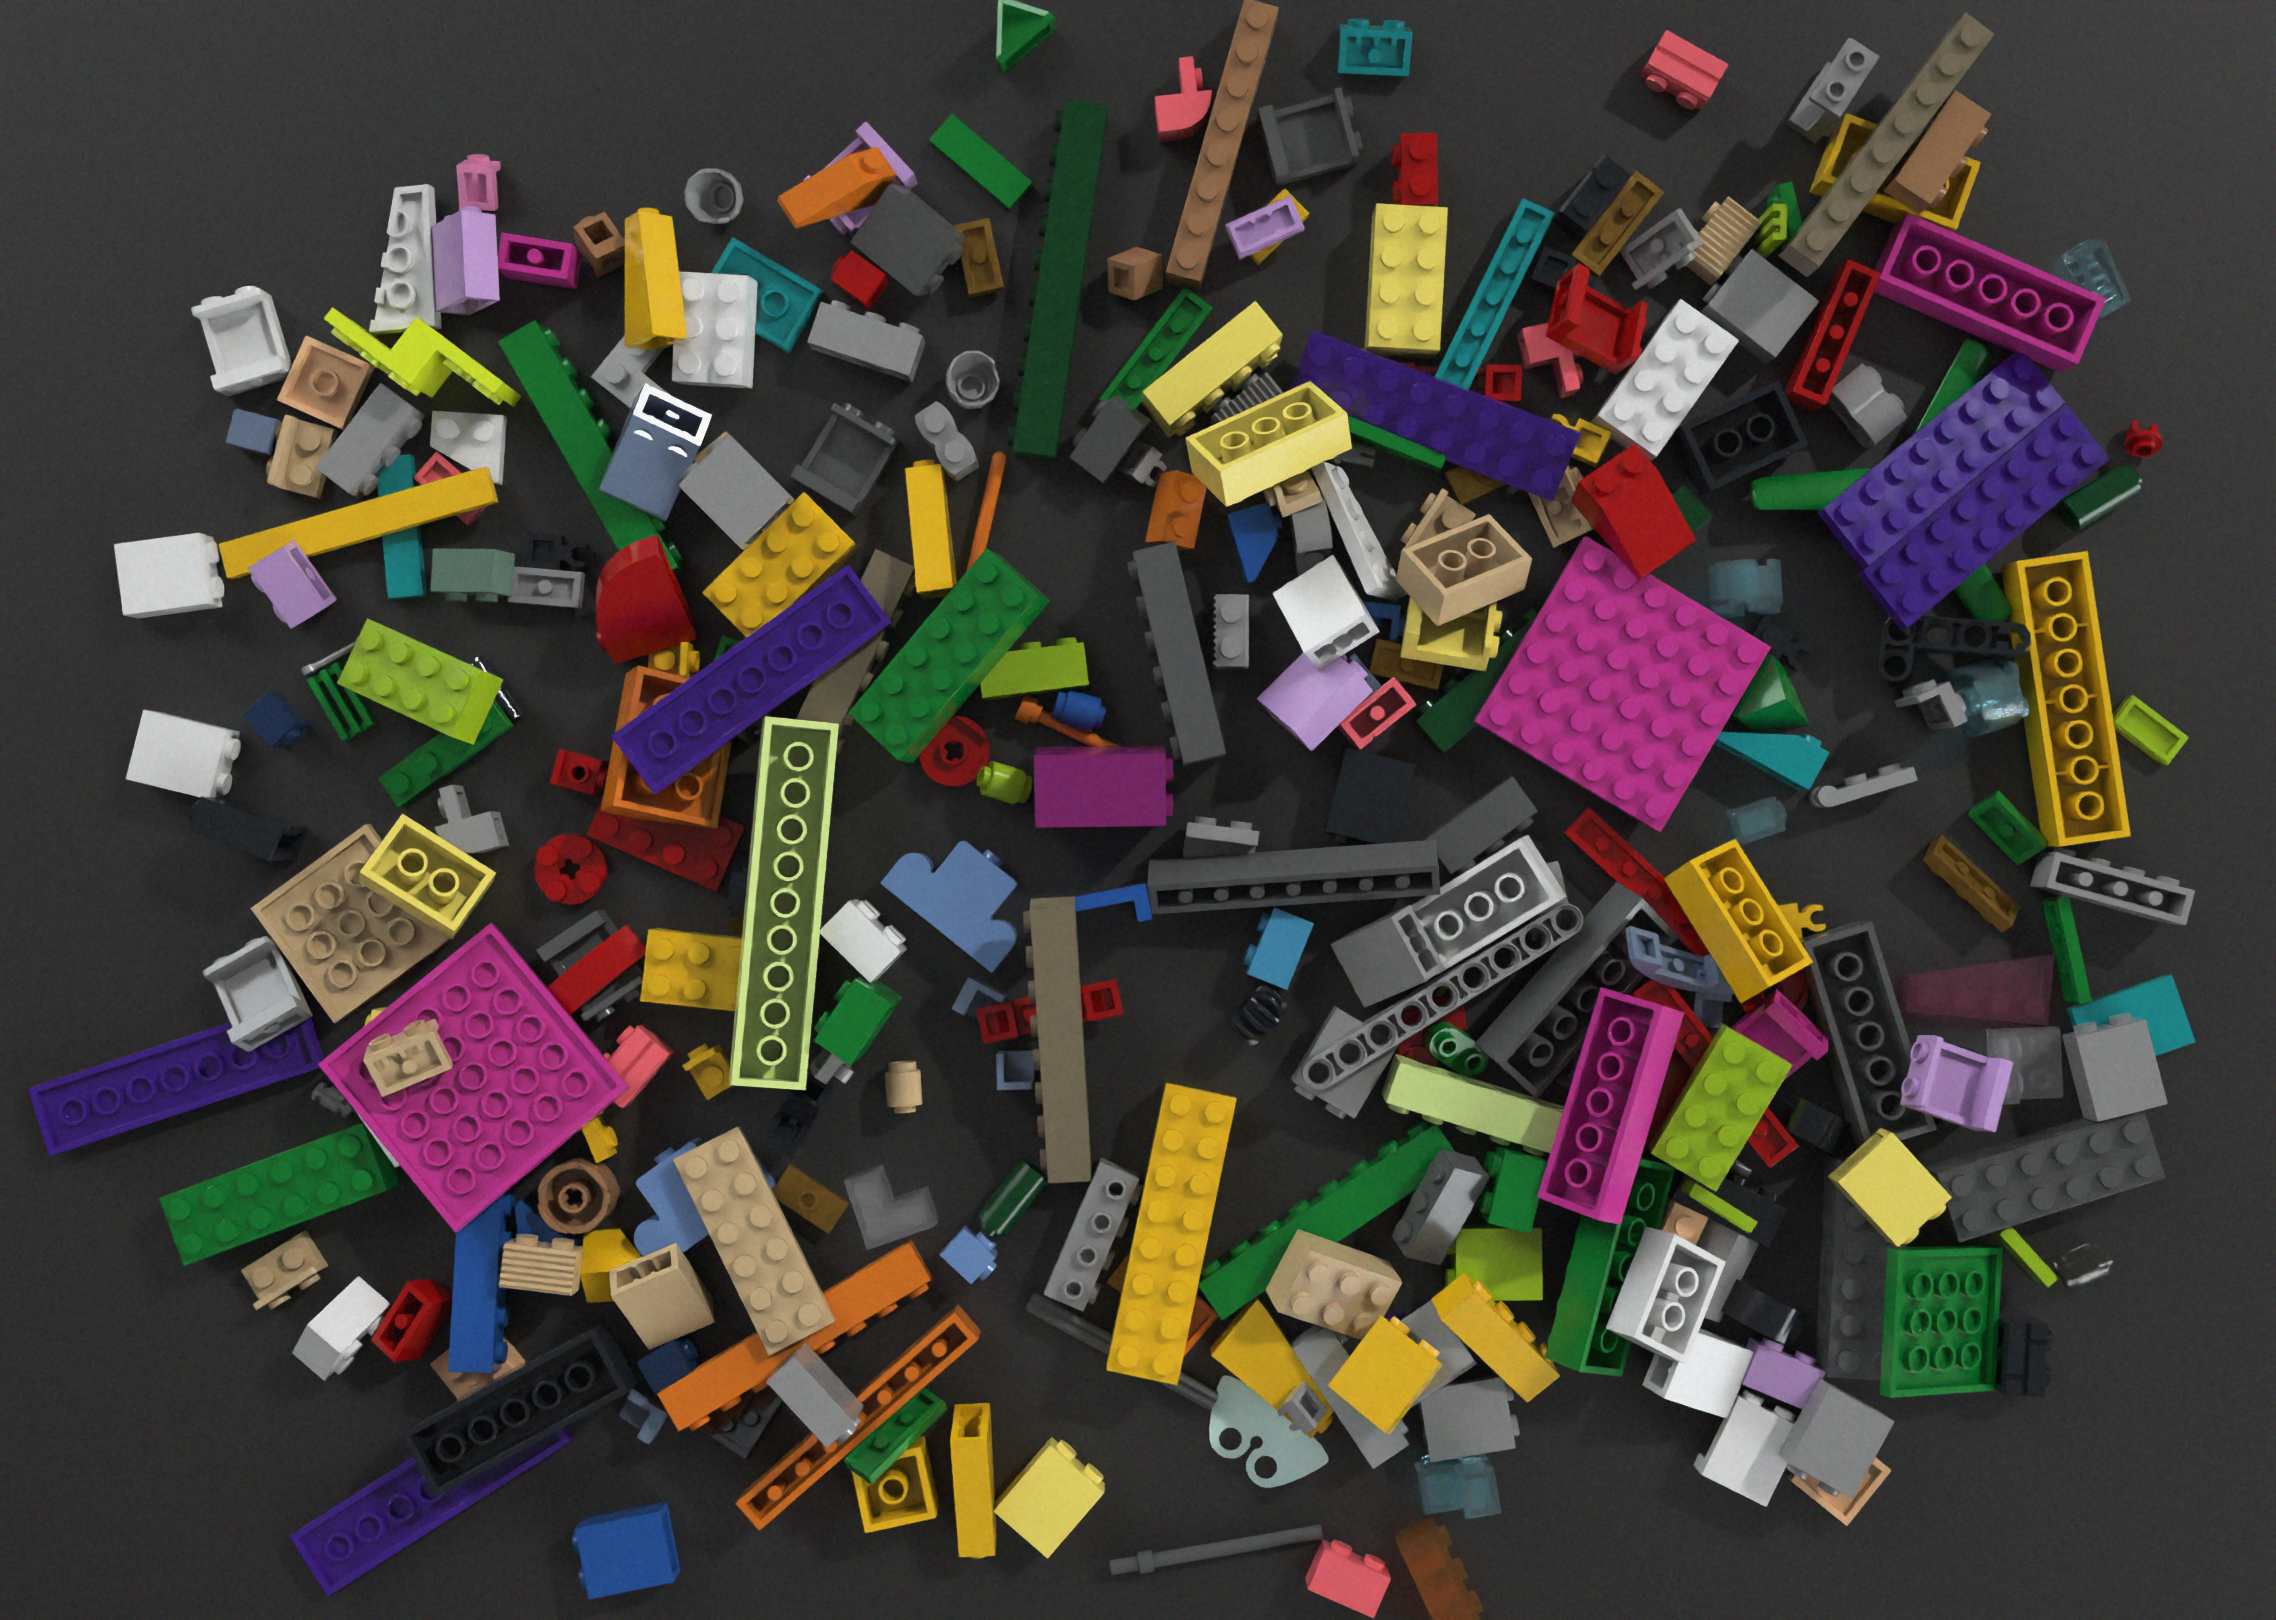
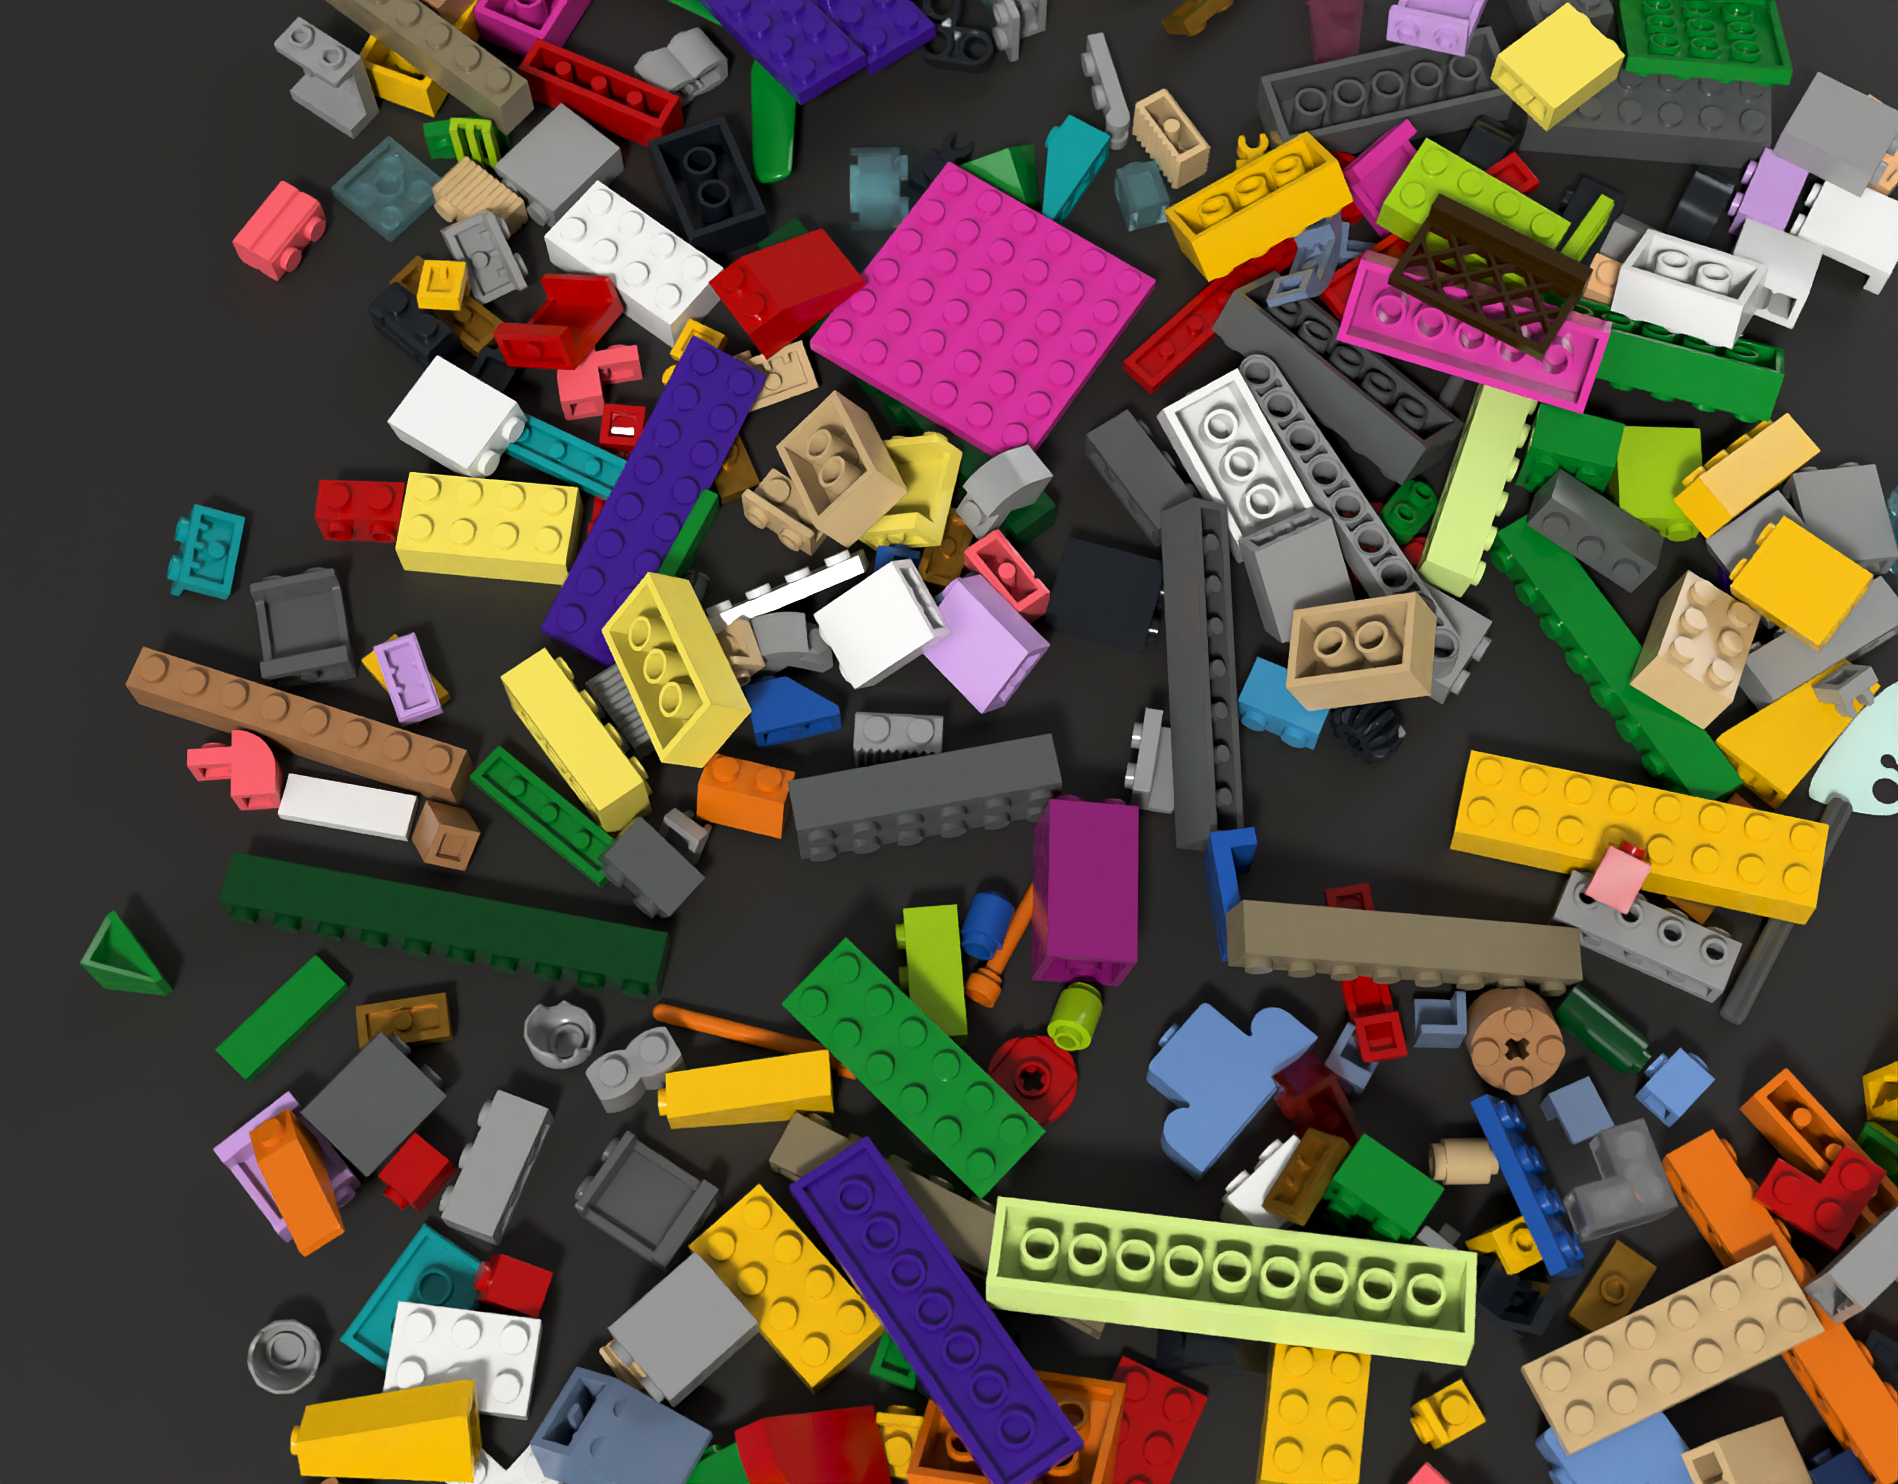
camera: 90 degrees left, 20 degrees down
(773, 361) = (511, 1286): none -> red brick
(837, 1121) = (1509, 1243): none -> yellow bracket
(861, 960) = (1306, 1176): none -> pearl gold plate
(865, 1361) = (1824, 1208): none -> red plate
(879, 1135) = (1523, 1171): none -> blue plate
(931, 973) = (1315, 1100): none -> clear red brick
(944, 1176) = (1577, 1110): none -> sand blue panel
(995, 1126) = (1535, 1046): none -> medium nougat brick
(1123, 1212) = (1619, 875): none -> brick
(1158, 193) = (348, 807): none -> white tile
(1305, 1006) = (1362, 652): none -> tan brick
(1450, 707) = (1000, 486): none -> light grey brick
(1497, 243) = (458, 420): none -> white brick
(1625, 216) = (443, 285): none -> yellow bracket
(1676, 1127) = (1505, 253): none -> dark brown fence
(1731, 159) = (387, 189): none -> clear light blue plate
(1812, 843) = (1170, 138): none -> tan brick

